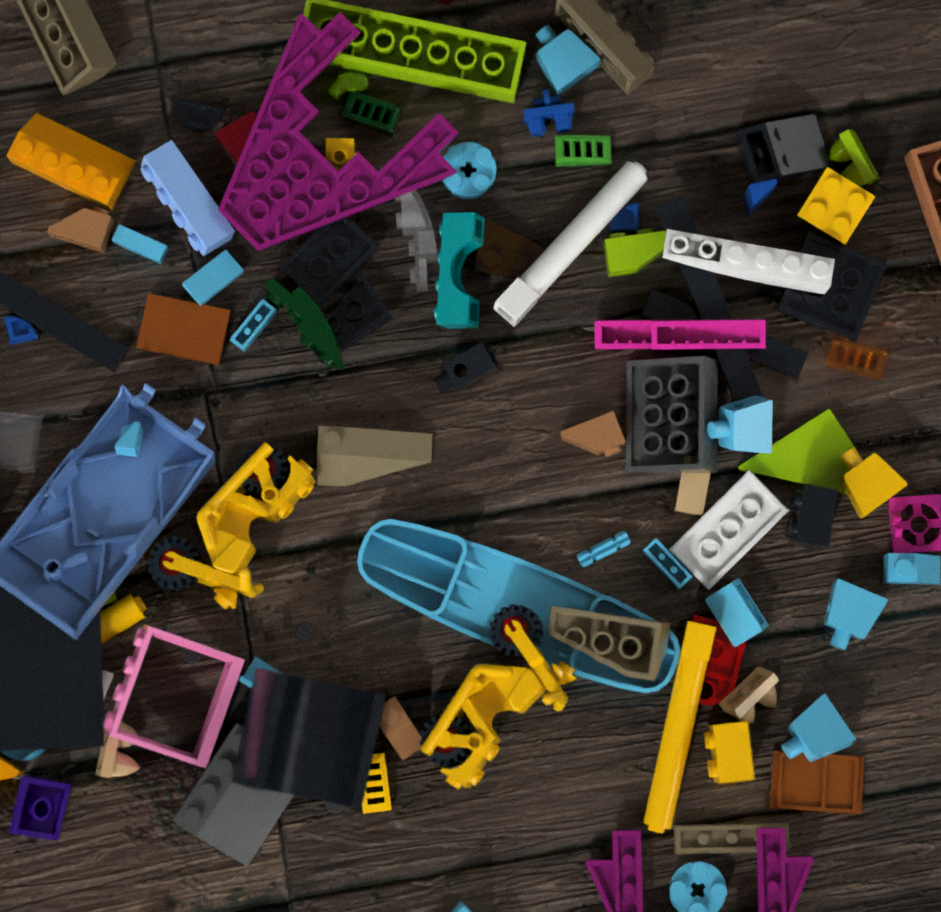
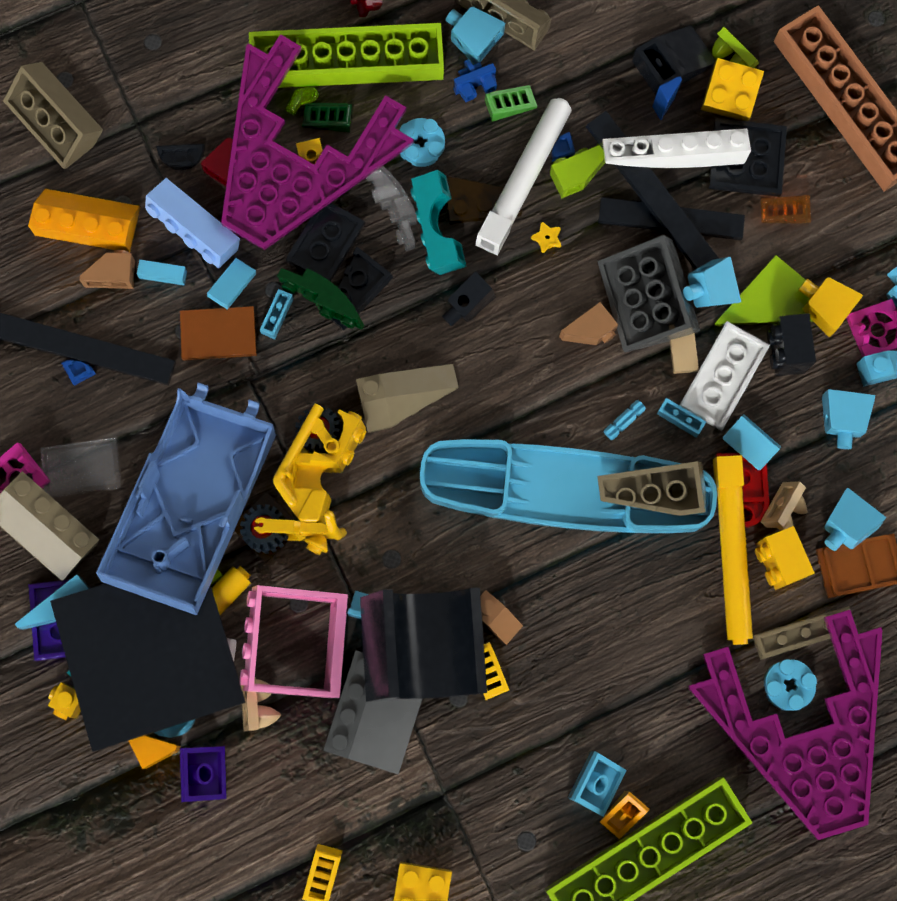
camera: 20 degrees left, 5 degrees down
(130, 440) = (197, 434): medium azure slope -> none
(491, 690) = (566, 563): yellow piece -> none
(574, 325) = (544, 243): none -> yellow plate
(680, 333) = (636, 225): dark pink slope -> none

